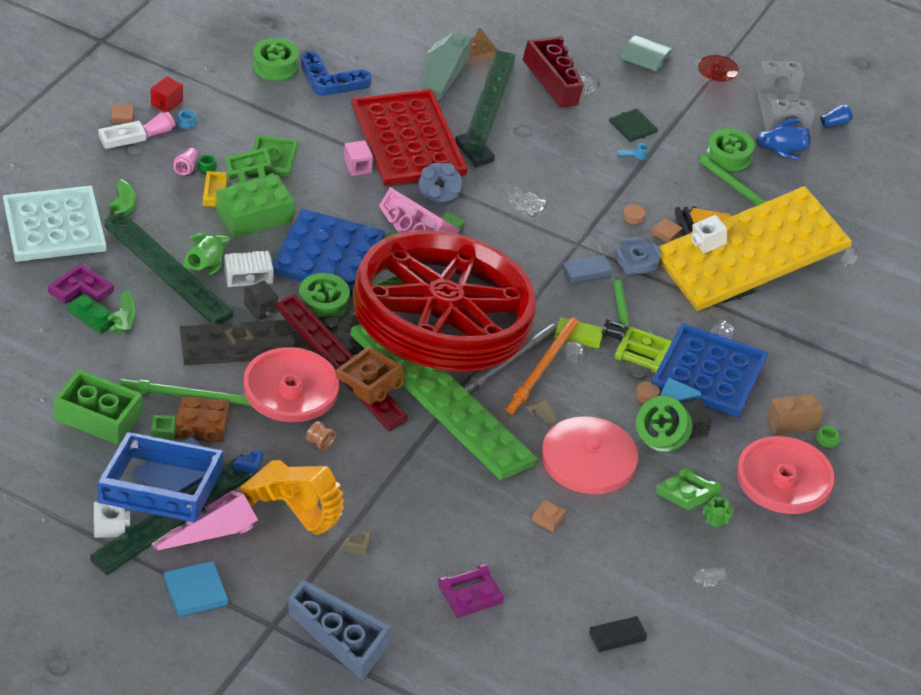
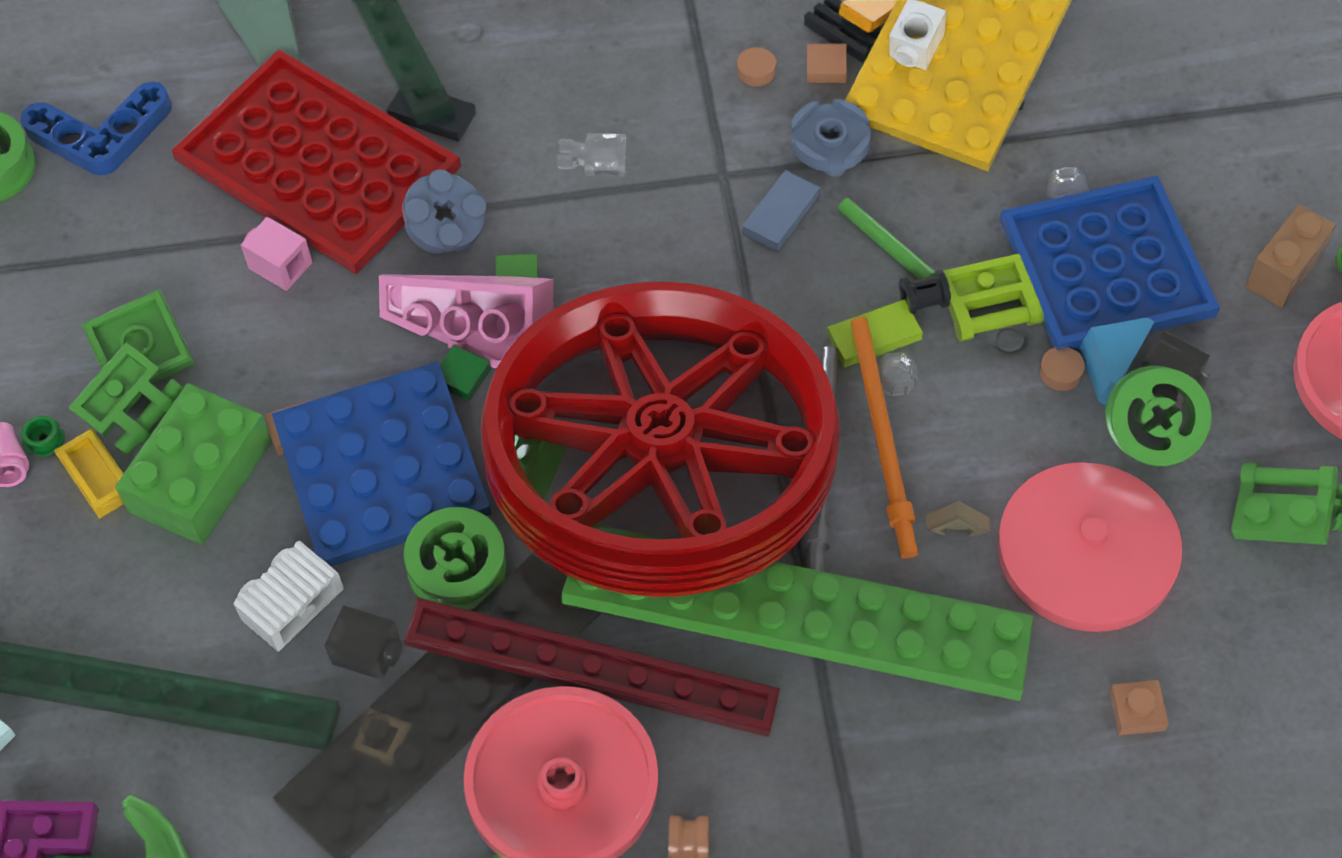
camera: 30 degrees left, 15 degrees up
(206, 252) = (196, 618): bright green animal -> none
(371, 375) = (677, 667): dark orange plate -> none

